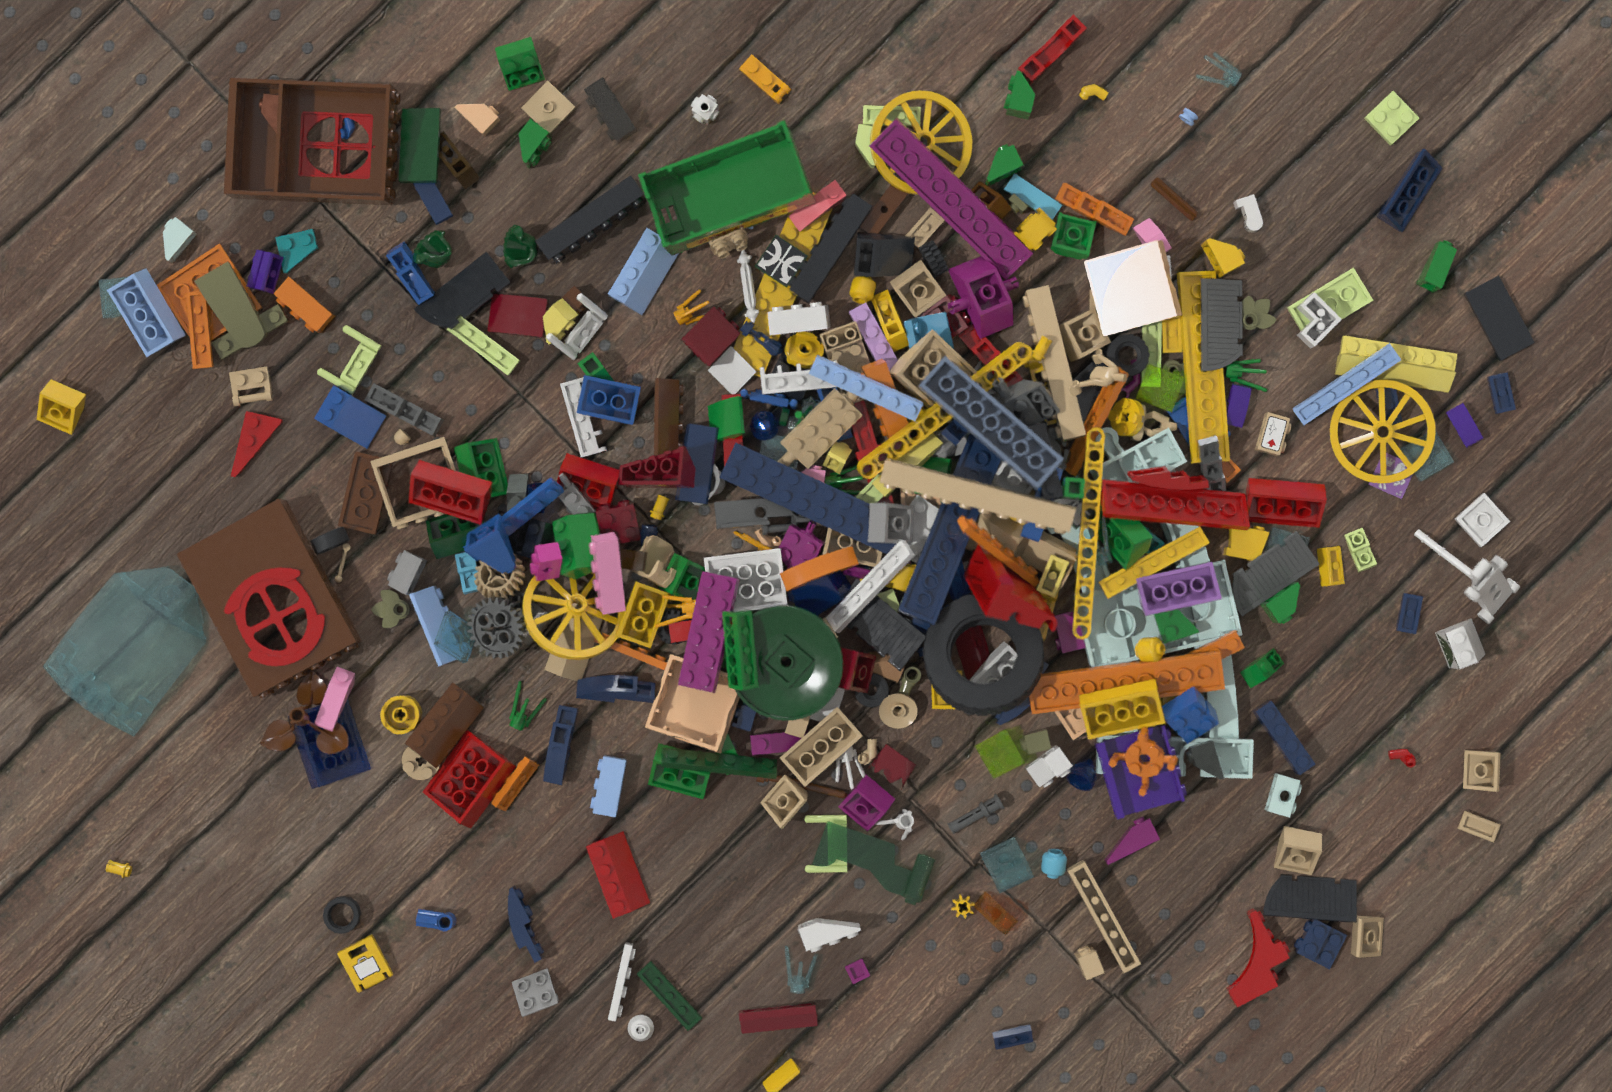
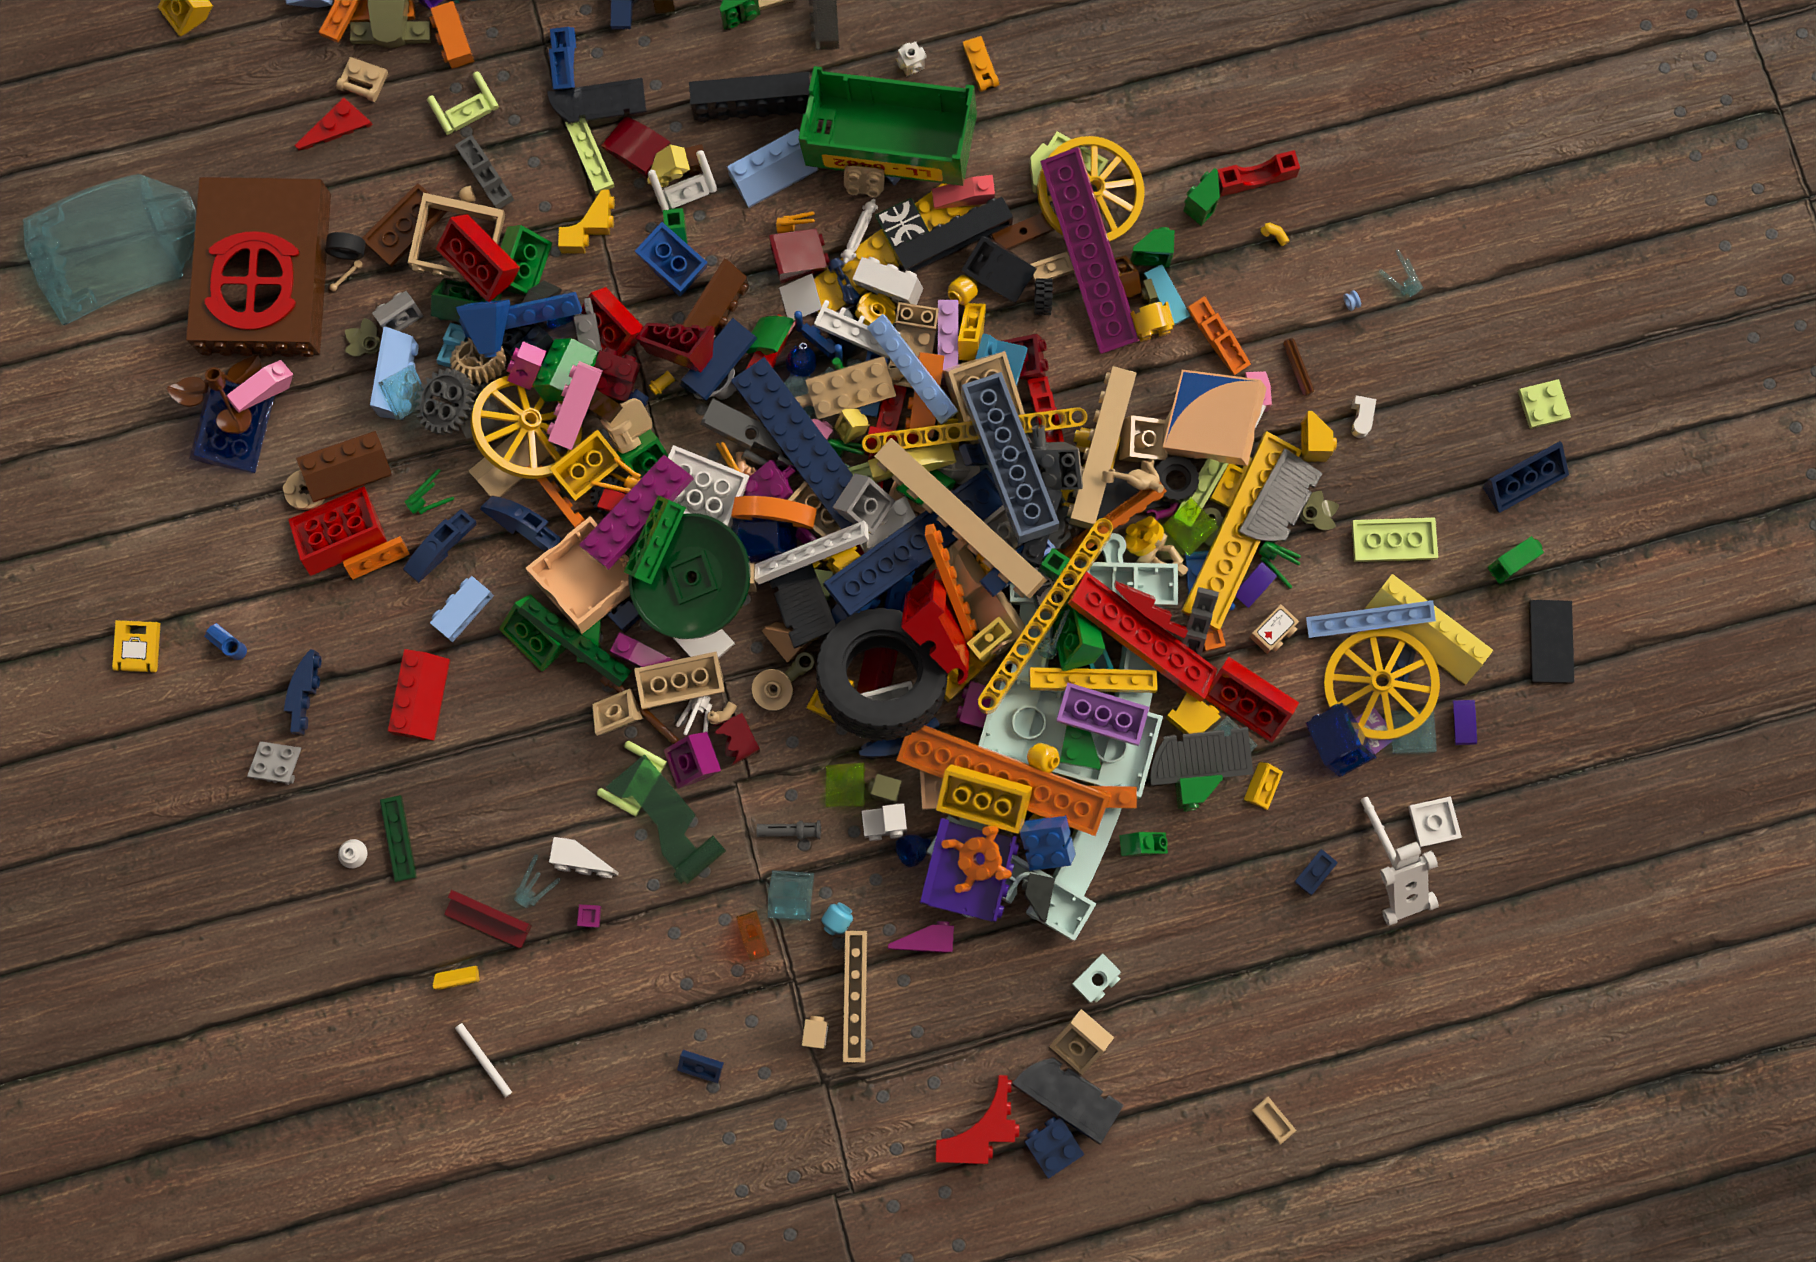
camera: 30 degrees right, 10 degrees down
(342, 900) = (132, 578): black tyre -> none
(350, 417) = (432, 151): blue slope -> none
(412, 716) = (307, 425): yellow brick -> none
(433, 250) = (595, 49): dark green hair -> none
(519, 247) = (673, 86): dark green hair -> none
(524, 400) = (595, 222): none -> yellow arch
(580, 423) = (635, 271): white hinge -> none
(620, 989) = (355, 803): white plate -> none
(784, 416) = (824, 363): dark green tile -> none
(797, 727) = (671, 648): tan brick -> none
(856, 670) = (752, 624): dark red slope -> none
(881, 694) = (758, 645): black tyre -> none
(903, 821) = (714, 793): white plant -> none
(917, 288) = (1013, 315): tan slope -> none
(961, 900) = (731, 912): yellow gear -> none
(983, 296) = (1070, 355): magenta slope -> none
(1041, 348) = (1096, 423): yellow pin -> none
(1073, 237) = (1184, 347): green slope -> none
(1283, 737) = (1128, 922): dark blue brick -> none
(1321, 320) = (1378, 543): white brick -> none
(1360, 550) = (1300, 785): yellowish green slope -> none
(1367, 936) = (1104, 1167): tan slope -> none
(1373, 497) = (1340, 740): none -> clear blue slope
(1404, 755) = (1237, 1008): red arm -> none
(1460, 644) = (1350, 928): white slope -> none
(1481, 770) = (1305, 1064): tan slope -> none
(1501, 393) = (1516, 711): dark blue plate -> none

